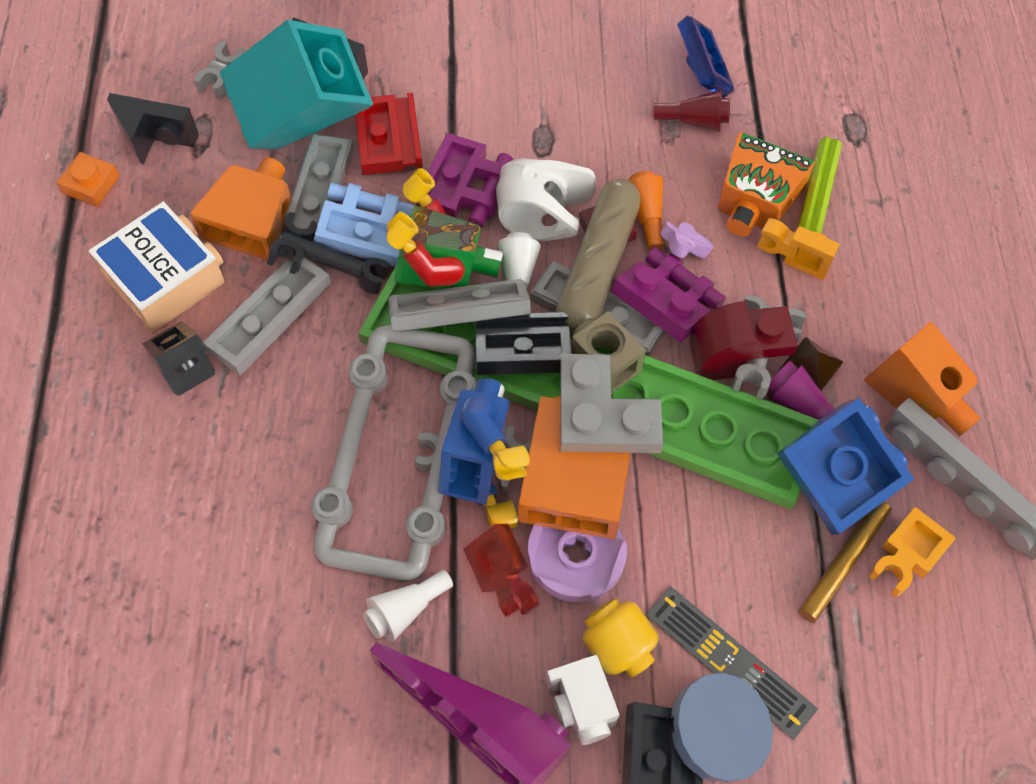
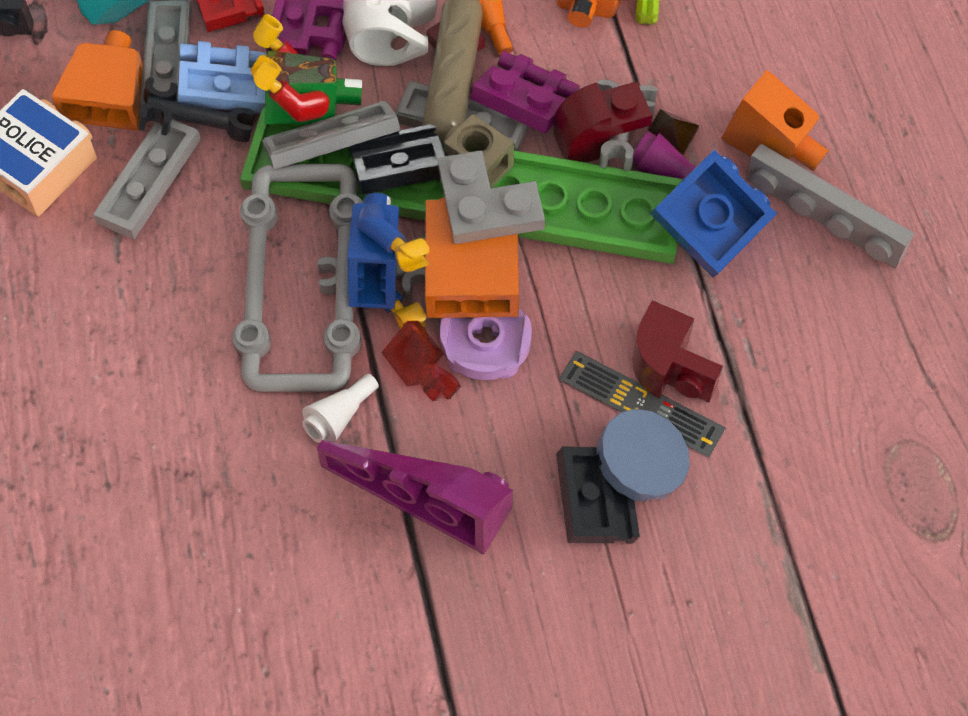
camera: 10 degrees left, 0 degrees up
(180, 357) = (73, 232): black slope -> none
(519, 256) = (377, 80): white cone -> none
(583, 699) = (516, 454): white brick -> none
(620, 637) = (539, 398): yellow head -> none
(685, 240) = (532, 39): lavender piece -> none
(760, 619) = (662, 358): none -> dark red brick
(803, 249) = (644, 28): light orange plate -> none
(844, 562) = (729, 298): pearl gold bar -> none
(913, 547) = (786, 275): light orange plate -> none

